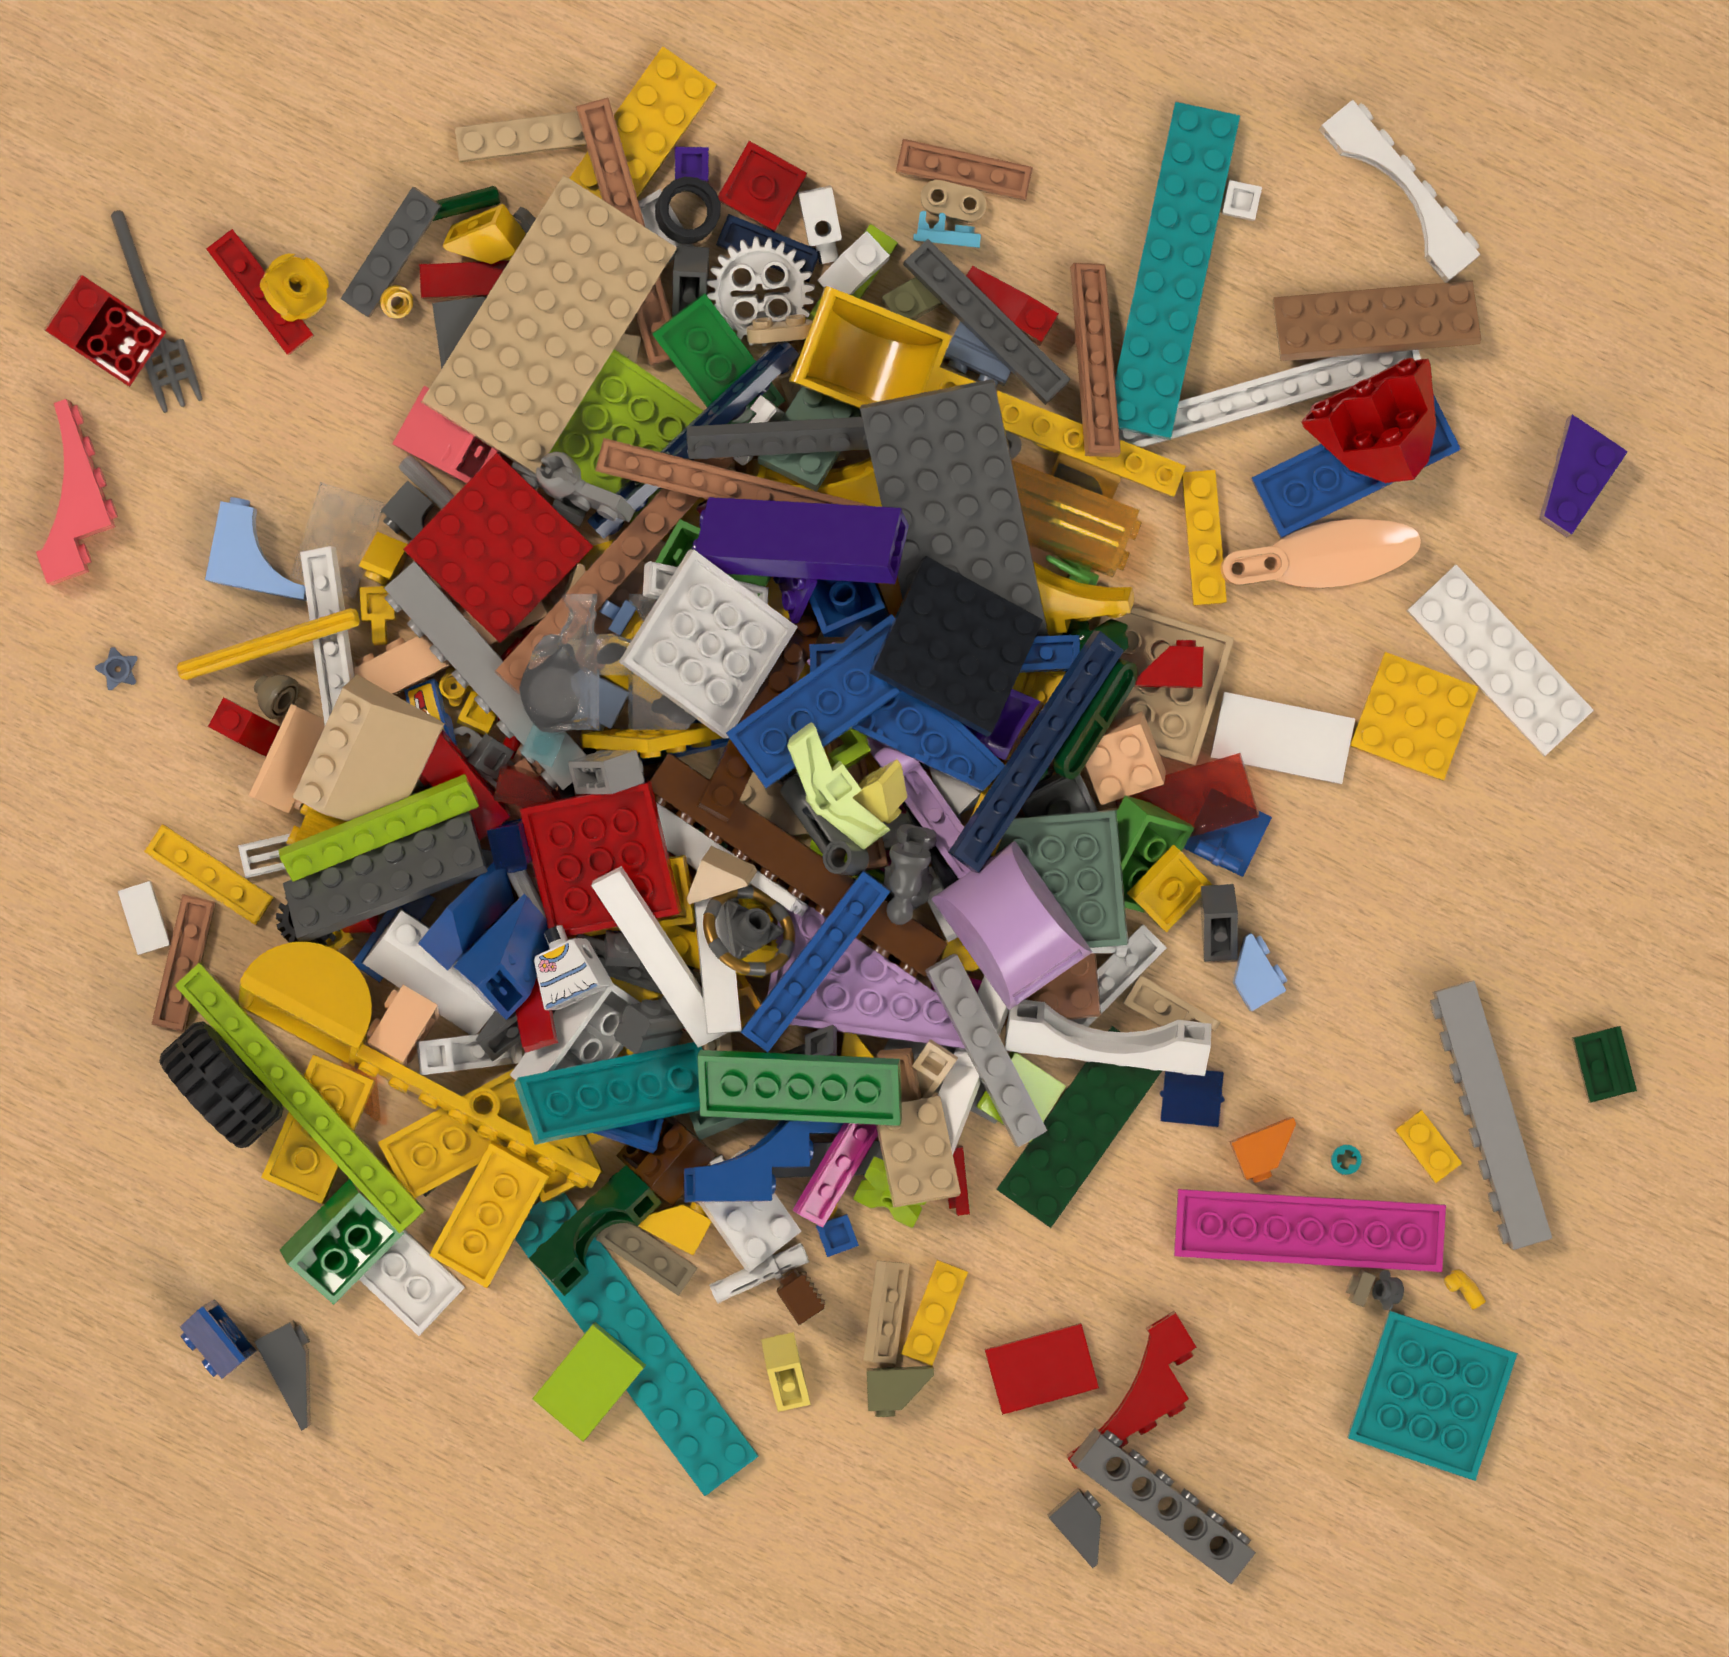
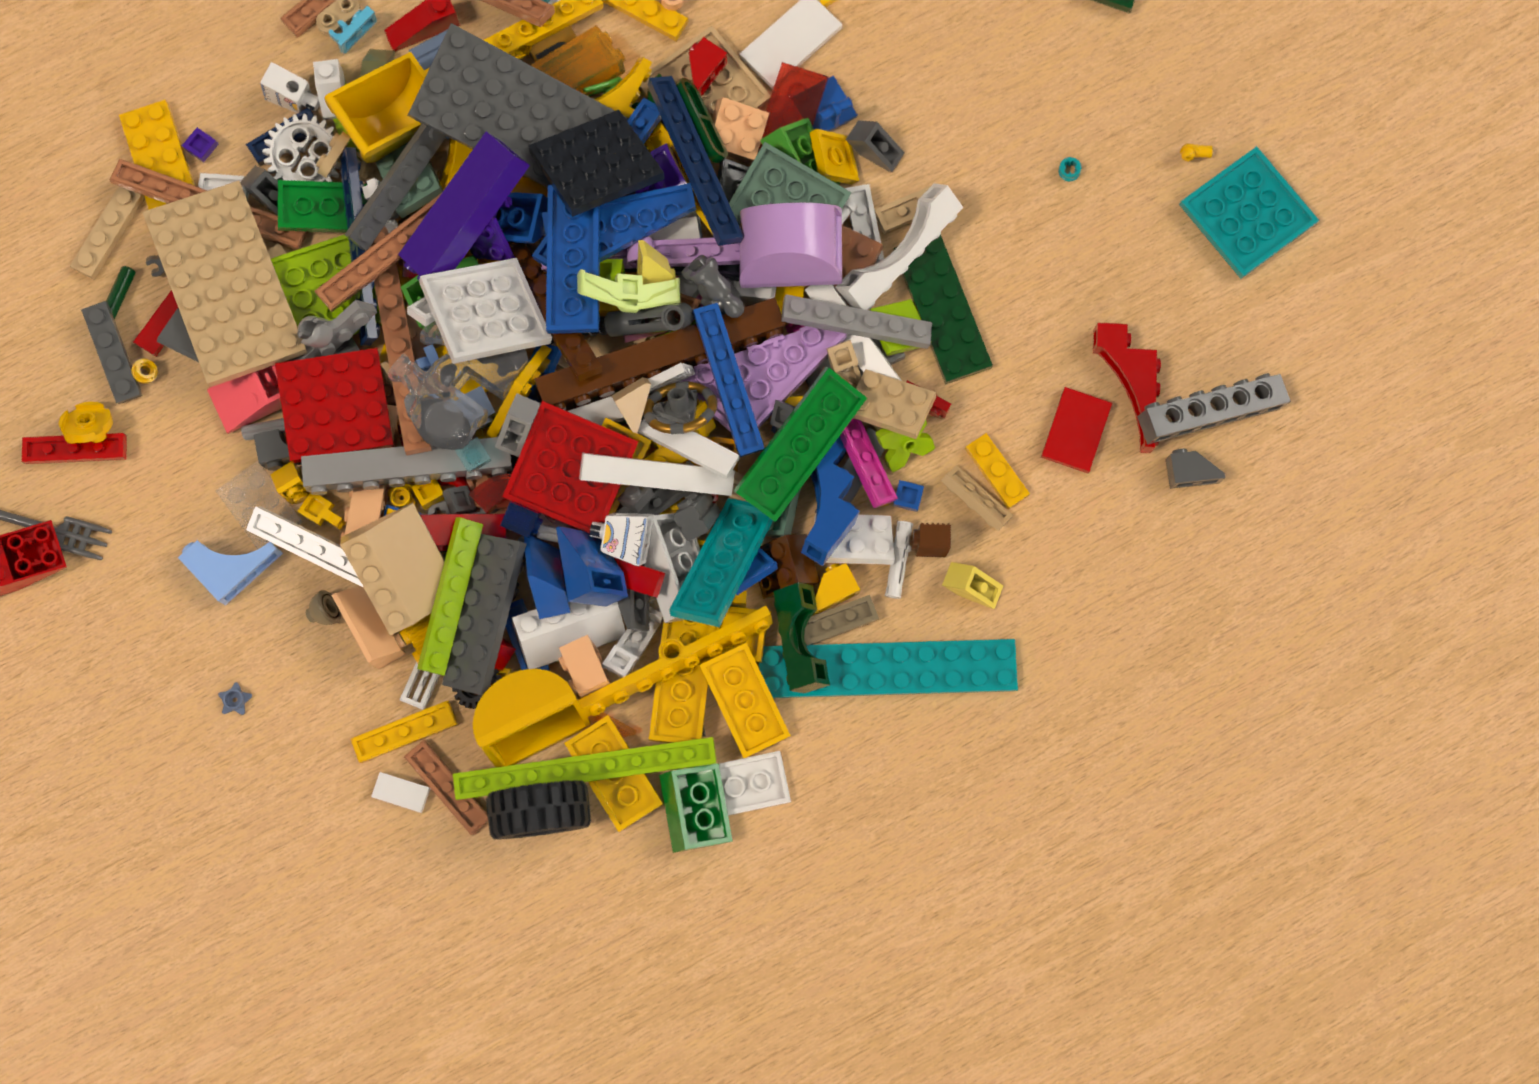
camera: 55 degrees left, 10 degrees down
(82, 503) = (117, 650): coral arch -> none
(216, 1339) = (701, 934): slope -> none
(244, 726) = (327, 643): red slope -> none
(268, 644) = (287, 588): yellow axle -> none
(288, 1362) = (748, 897): dark grey slope -> none
(486, 236) = (146, 288): yellow slope -> none
(589, 1382) = (895, 711): lime tile -> none
(705, 192) = (216, 149): black tyre -> none
(762, 186) = (244, 114): red plate -> none
(894, 1387) = (1028, 525): olive slope -> none
(986, 321) = (416, 33): dark grey plate -> none
(1192, 1098) = (969, 232): clear blue piece -> none
(1254, 975) = (921, 145): light blue slope -> none
(1262, 1149) = (1031, 210): orange slope -> none
(1309, 1230) = (1098, 217): dark pink plate -> none
(1360, 1287) = (1155, 209): dark tan plate -> none
(1388, 1290) = (1172, 193): dark grey plate -> none
(1428, 1146) = (1094, 118): yellow plate -> none
(1491, 1114) = (1101, 68): light grey brick -> none

